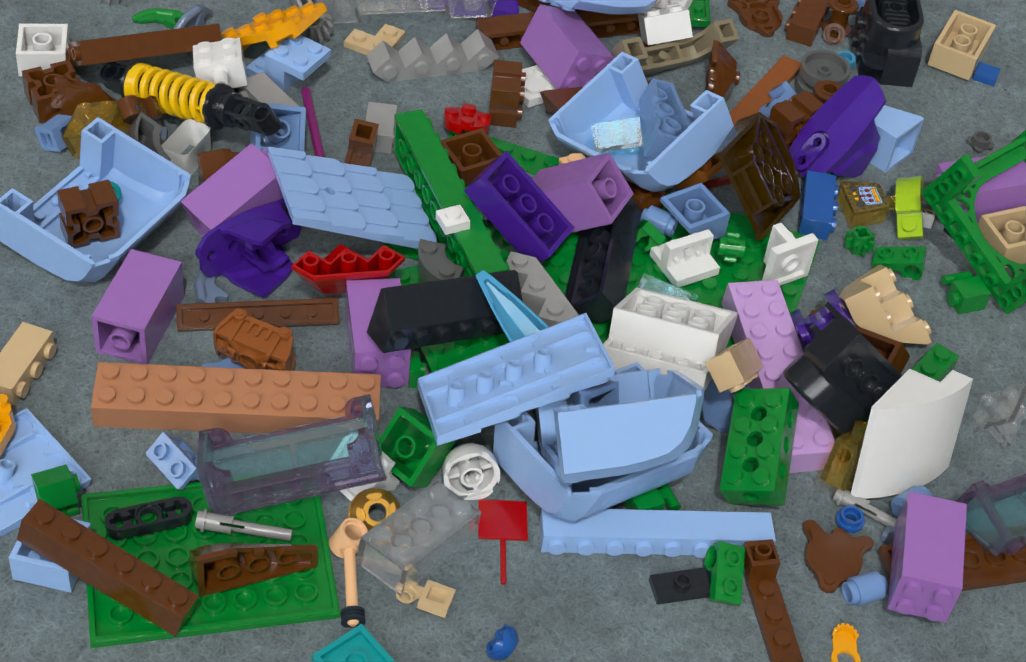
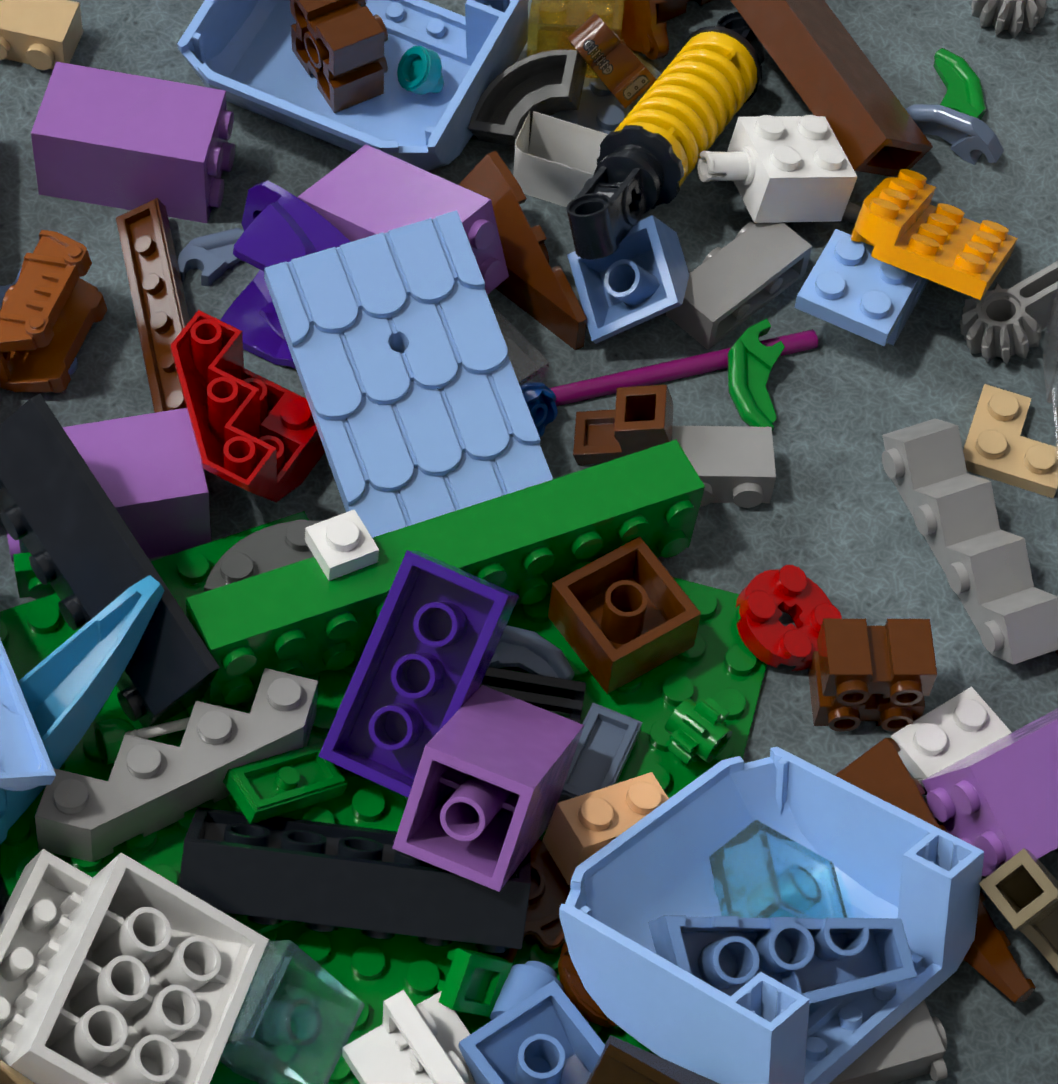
camera: 85 degrees right, 10 degrees up
(319, 108) = (748, 373): none -> green piece
(529, 149) = (698, 730): none -> green gear
(560, 276) = (284, 783): none -> green plate

